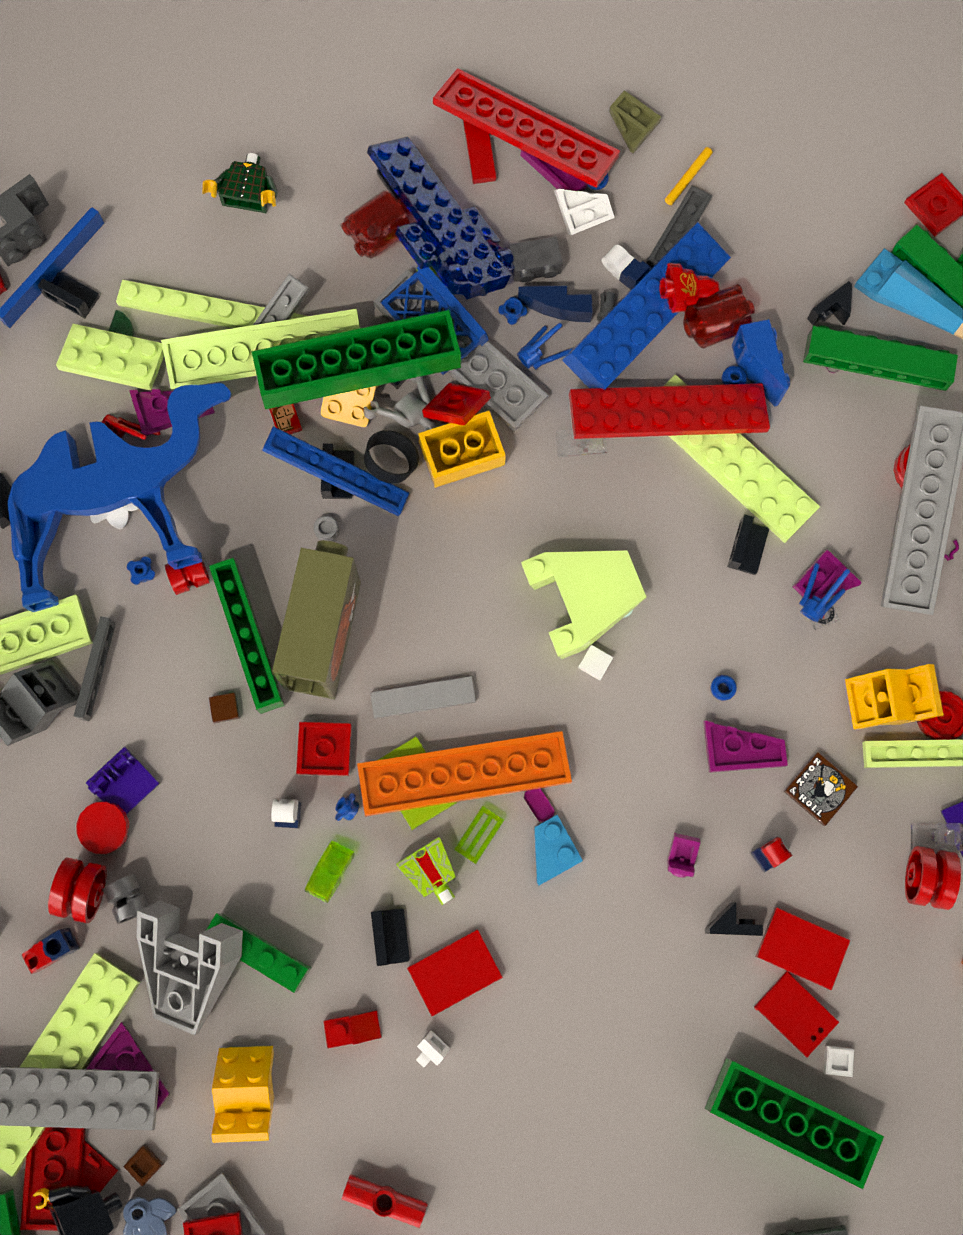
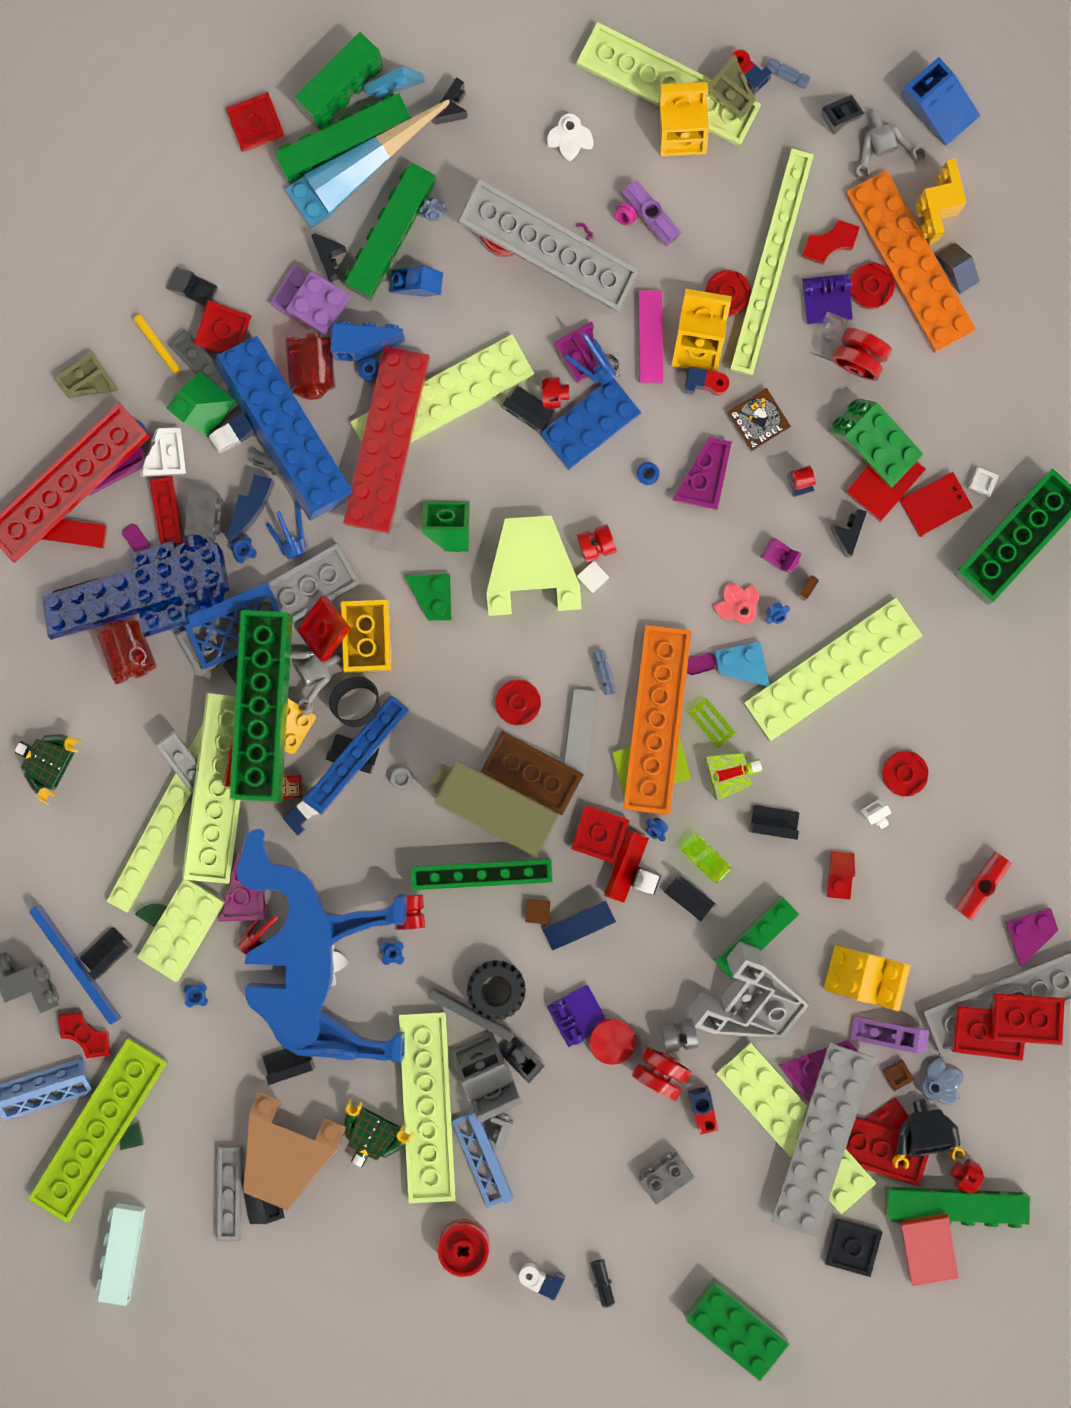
camera: 70 degrees left, 10 degrees up
(48, 383) = (191, 990): none -> blue plate
(58, 735) = (522, 1059): none -> black slope
(108, 678) = (483, 1006): none -> black tyre
(186, 1143) = (890, 1034): none -> medium lavender slope
(220, 756) = (579, 925): none -> dark blue slope
(255, 435) = (299, 816): none -> dark blue leg
(282, 866) = (689, 897): none -> black panel
(296, 786) = (626, 866): none -> red tile
(369, 659) = (532, 773): none -> reddish brown tile
(440, 623) = (518, 702): none -> red tile
(454, 972) = (819, 777): red tile -> none
(486, 1070) = (905, 773): none -> red tile
(492, 209) = (135, 538): none -> magenta piece
(498, 704) = (604, 672): none -> sand blue axle
(525, 505) = (433, 595): none -> green wing
(531, 227) = (166, 510): none -> red tile
(578, 953) = (833, 669): none -> yellowish green plate
(602, 497) = (447, 524): none -> green slope
(619, 822) = (735, 601): none -> coral plate
(619, 870) = (776, 613): none -> blue plate
(635, 662) = (604, 540): none -> red wheel
(644, 227) = (201, 404): none -> green slope
(658, 896) = (808, 588): none -> reddish brown tile
(684, 287) = (280, 389): red rock -> none
(727, 226) = (221, 328): none -> red tile
(755, 192) = (191, 287): none -> black slope
(755, 613) = (590, 423): none -> blue plate
(774, 564) = (554, 392): none -> red piece
(784, 299) = (310, 300): none -> medium lavender bracket
(839, 397) = (416, 281): none -> blue slope
(842, 719) = (707, 380): none -> leg
(844, 925) = (877, 439): none -> green bracket
(867, 649) = (651, 336): none -> dark pink tile
(917, 392) = (432, 209): none -> sand blue plant

